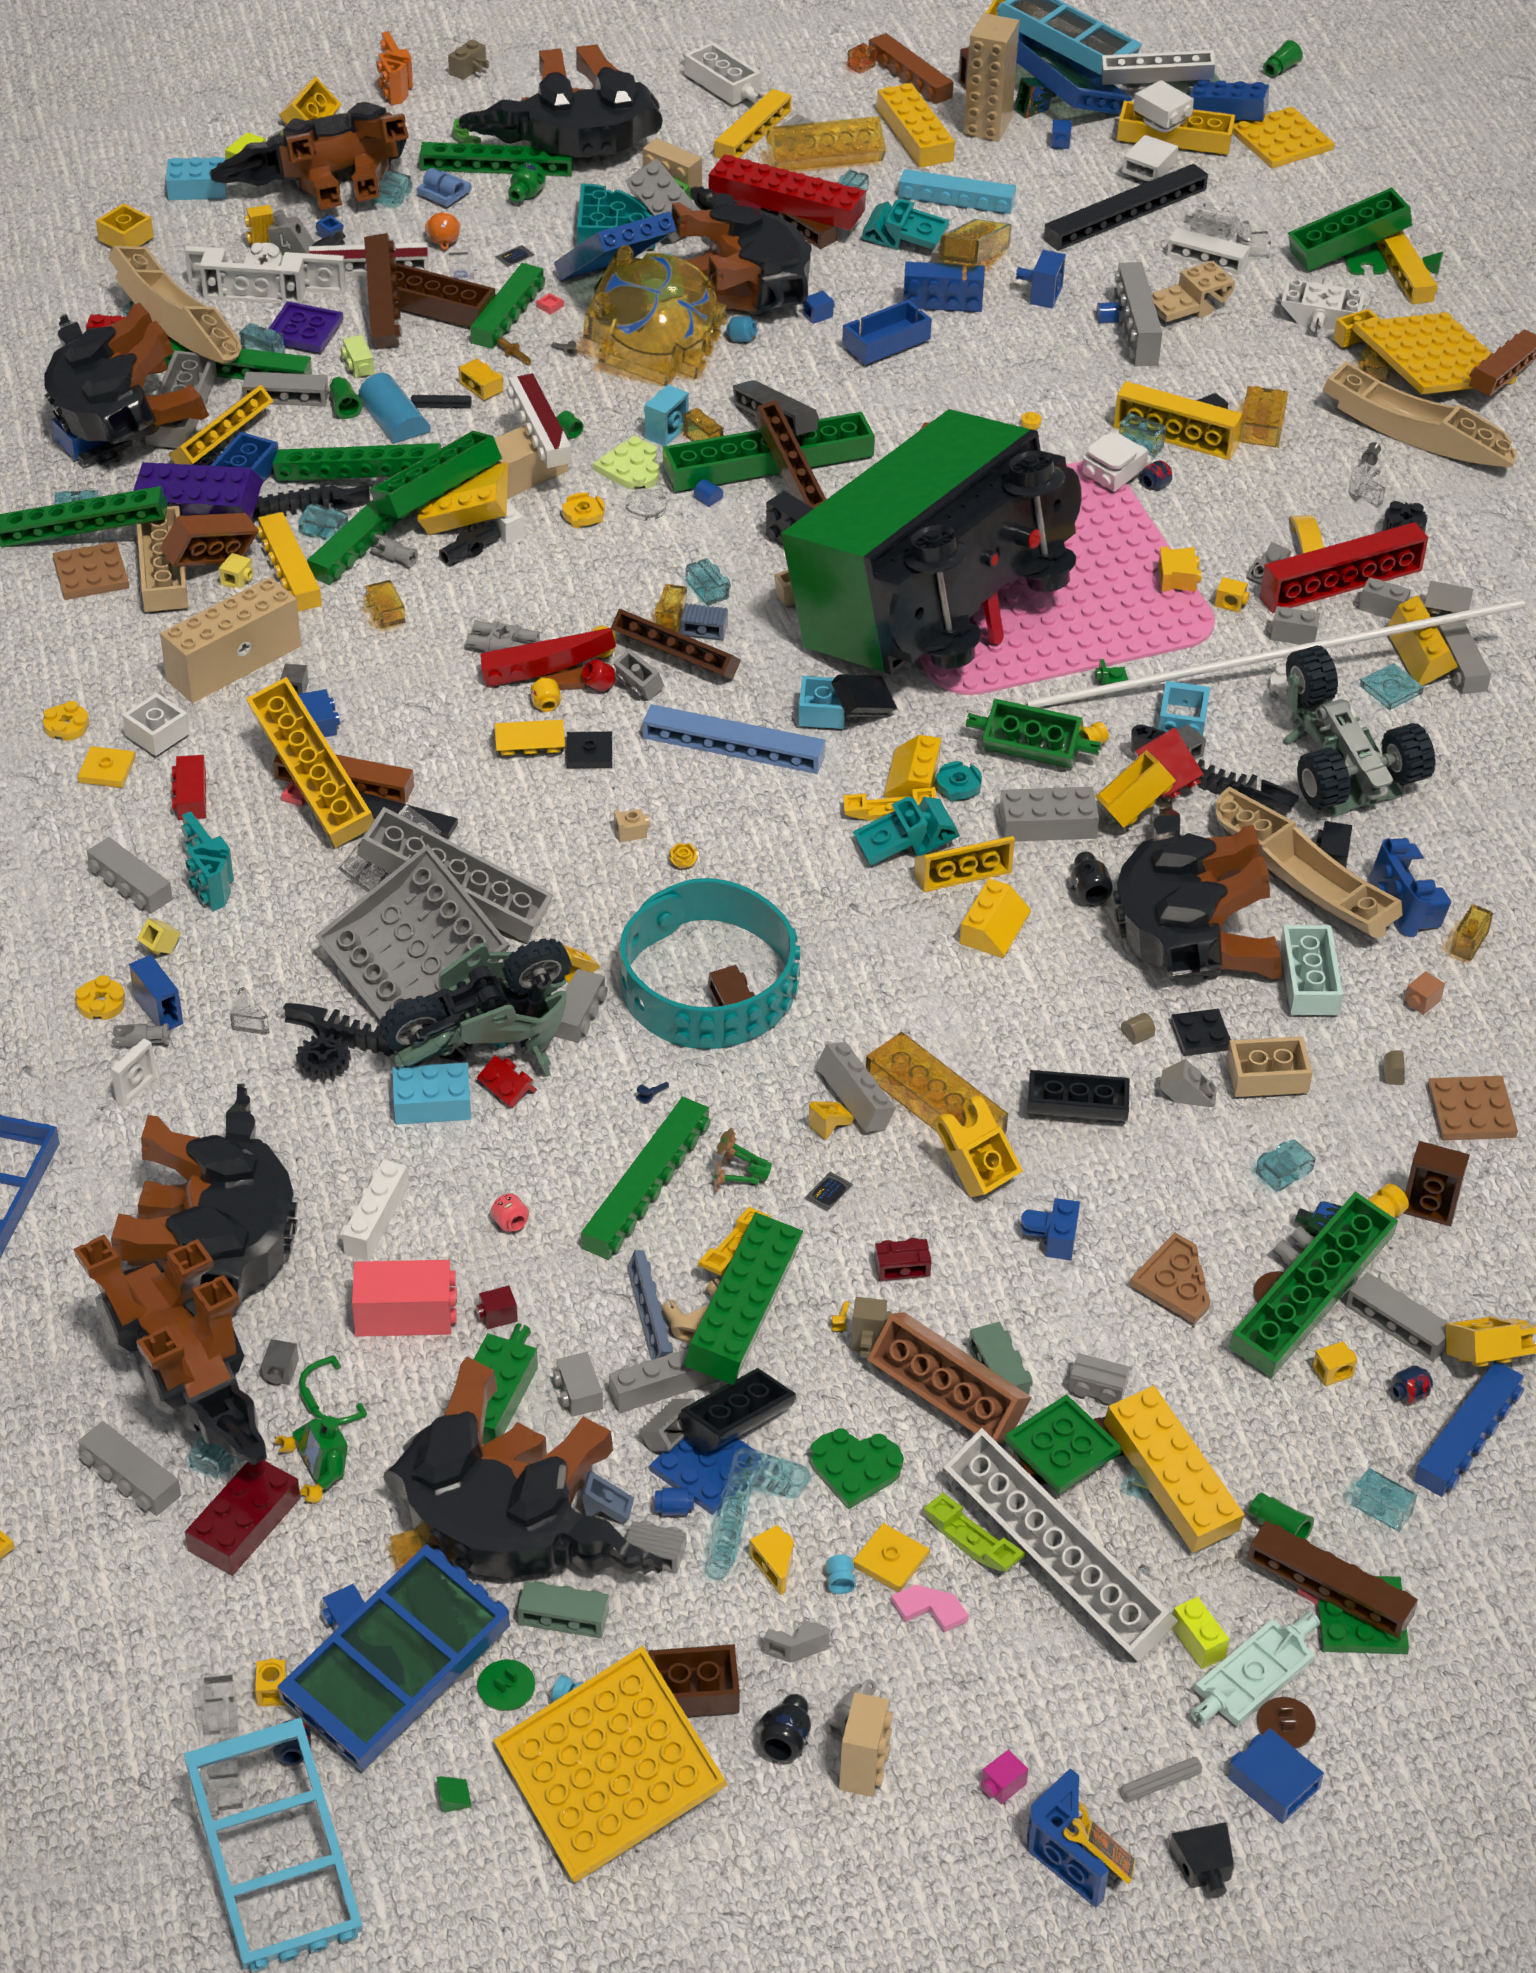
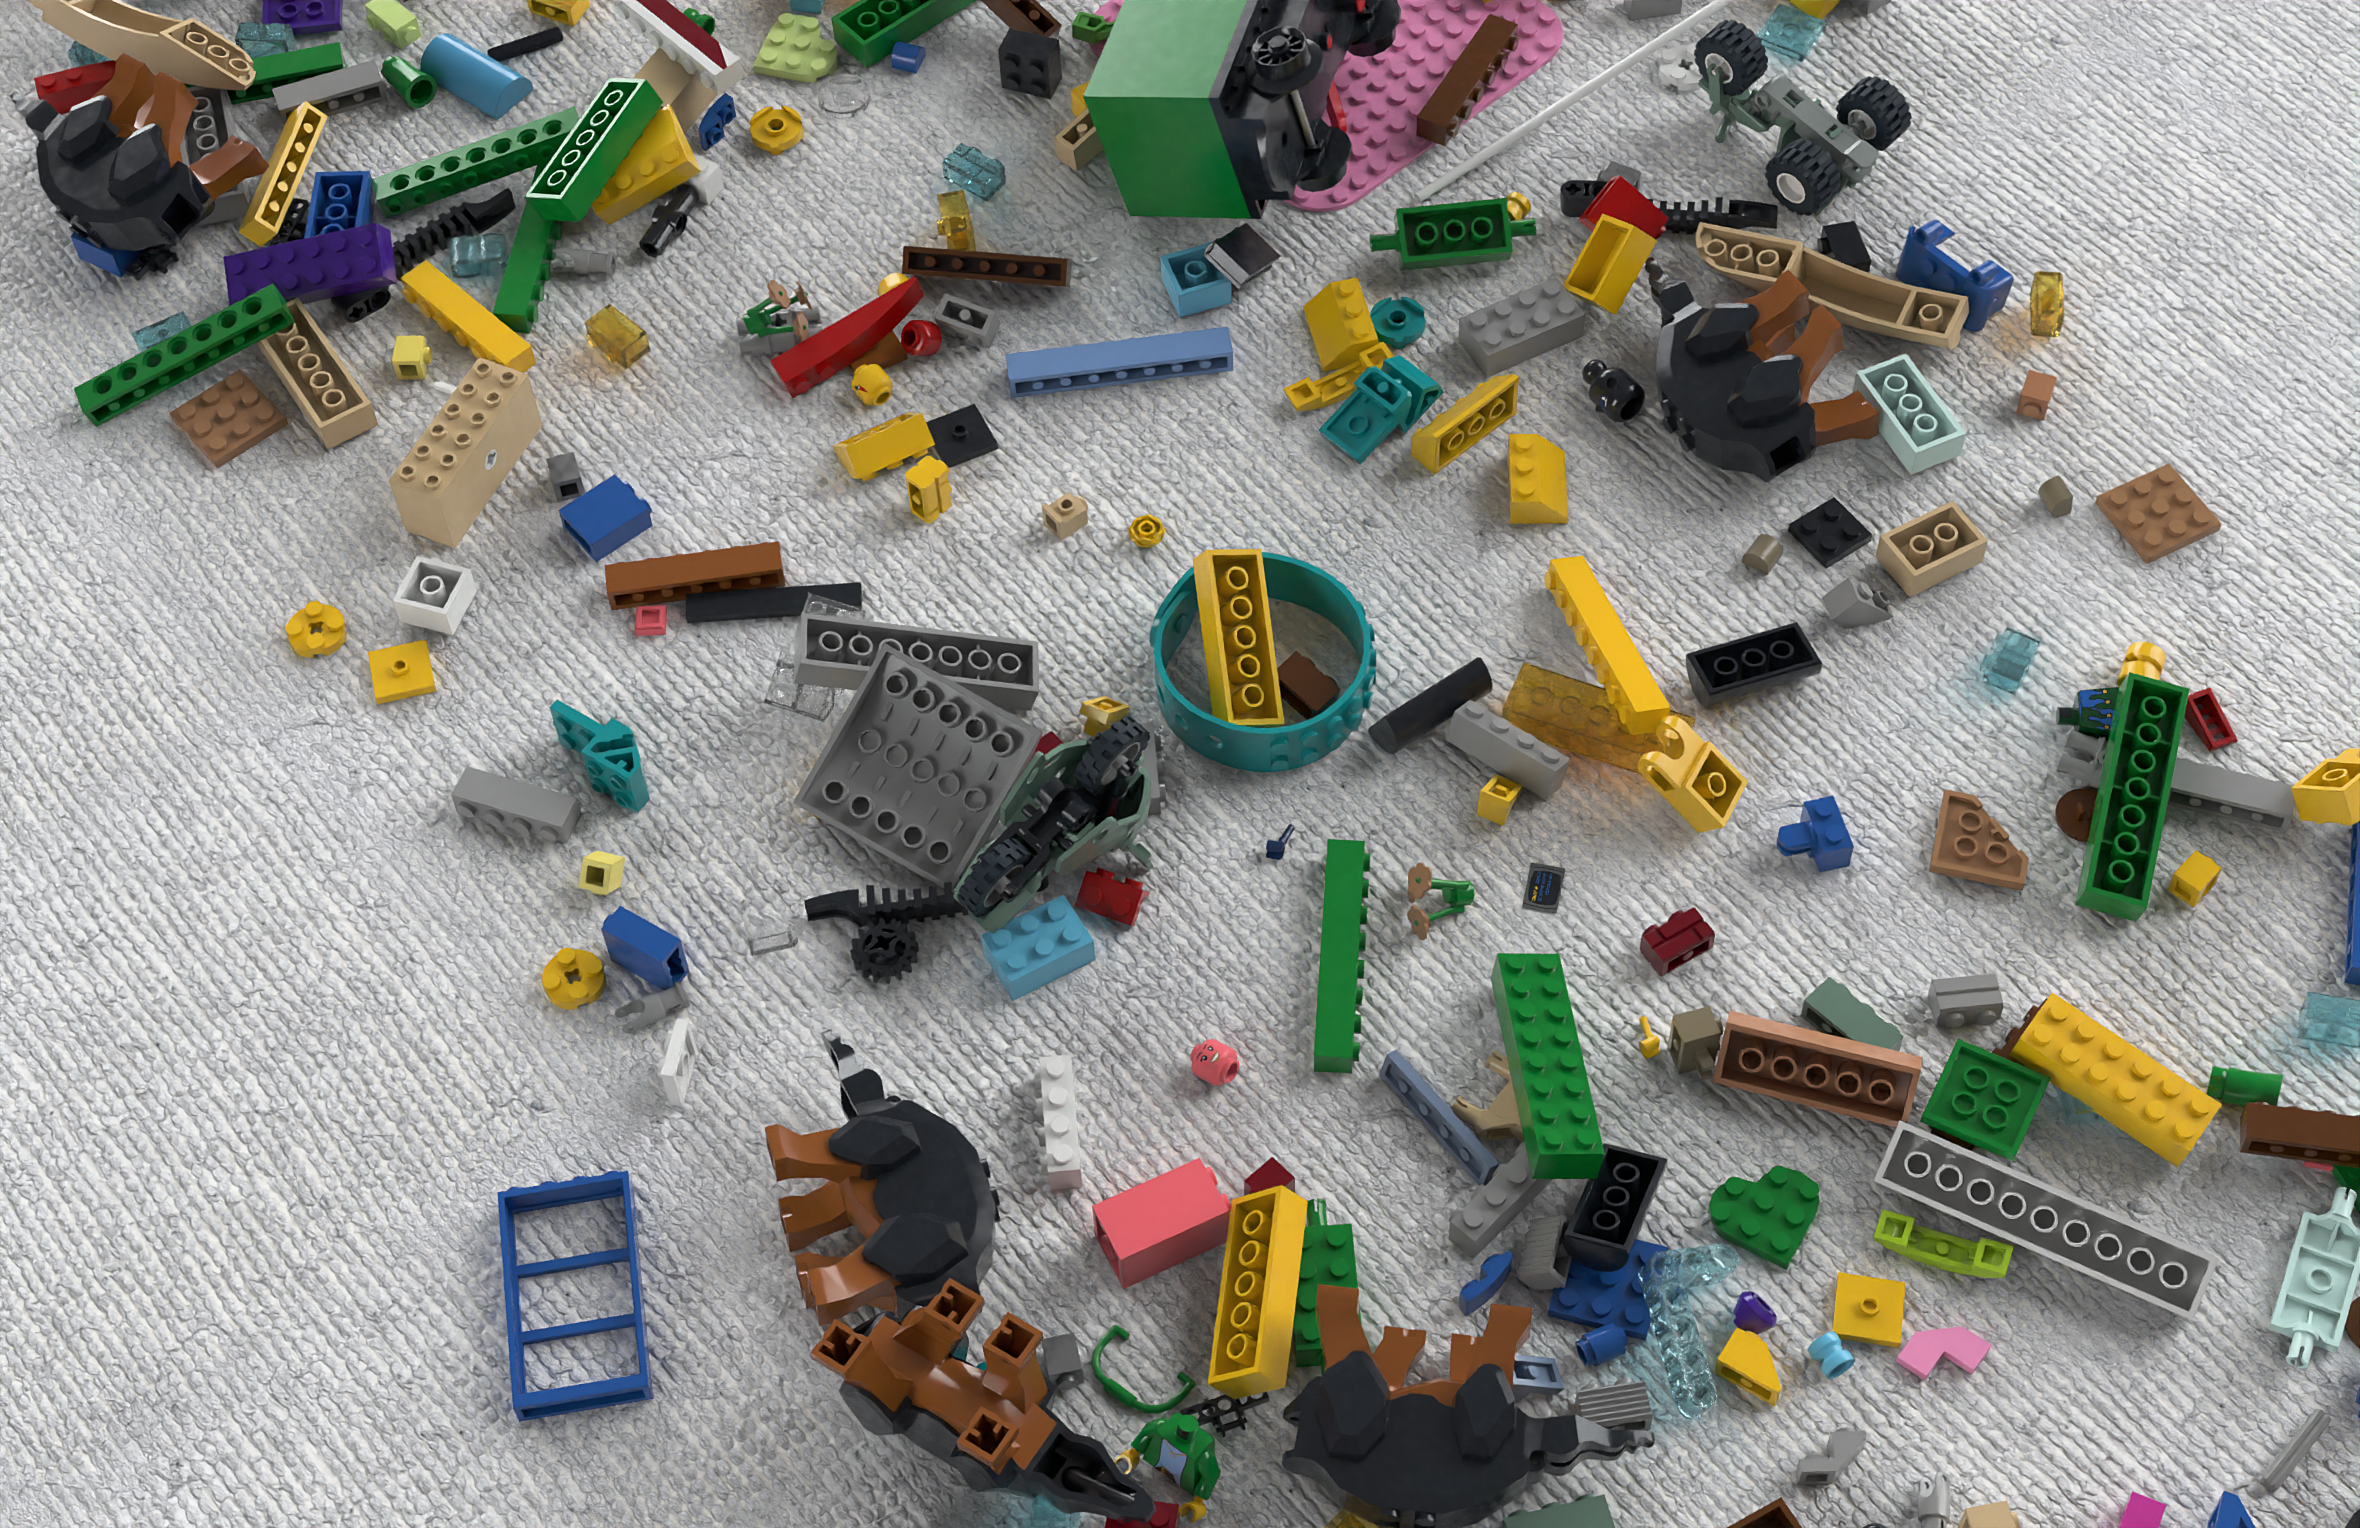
camera: 20 degrees left, 10 degrees up
(189, 786) = (521, 662): red brick -> none
(208, 538) = (365, 330): dark orange brick -> none
(310, 762) = (660, 579): yellow brick -> none
(366, 1436) = (1214, 1417): none -> black piece
(436, 1362) = (1258, 1293): none -> yellow brick
(486, 623) = (758, 318): none -> plant
(540, 772) = (929, 489): none -> yellow brick
(547, 487) = (712, 124): none -> blue slope
(579, 1384) = (1414, 1245): light grey brick -> none
(625, 1425) = (1492, 1276): none -> blue slope
(694, 935) = (1238, 637): none -> yellow brick
(704, 621) = (1000, 224): sand blue brick -> none
(718, 1259) = (1483, 1014): yellow slope -> none
(800, 1523) = (1753, 1313): none -> dark purple cone
(811, 1036) = (1432, 707): none -> black brick
(968, 1038) = (1606, 644): none -> yellow brick
(1109, 675) = (1487, 129): green bracket -> none
(1112, 635) = (1467, 80): none -> reddish brown brick
(1188, 696) = (1590, 123): medium azure window -> none
(1200, 1633) = (2243, 1260): neon yellow brick -> none
(1412, 1384) = (2286, 871): dark blue head -> none
(1418, 1243) = (2212, 708): none -> red slope
(1435, 1183) = (2190, 622): reddish brown brick -> none

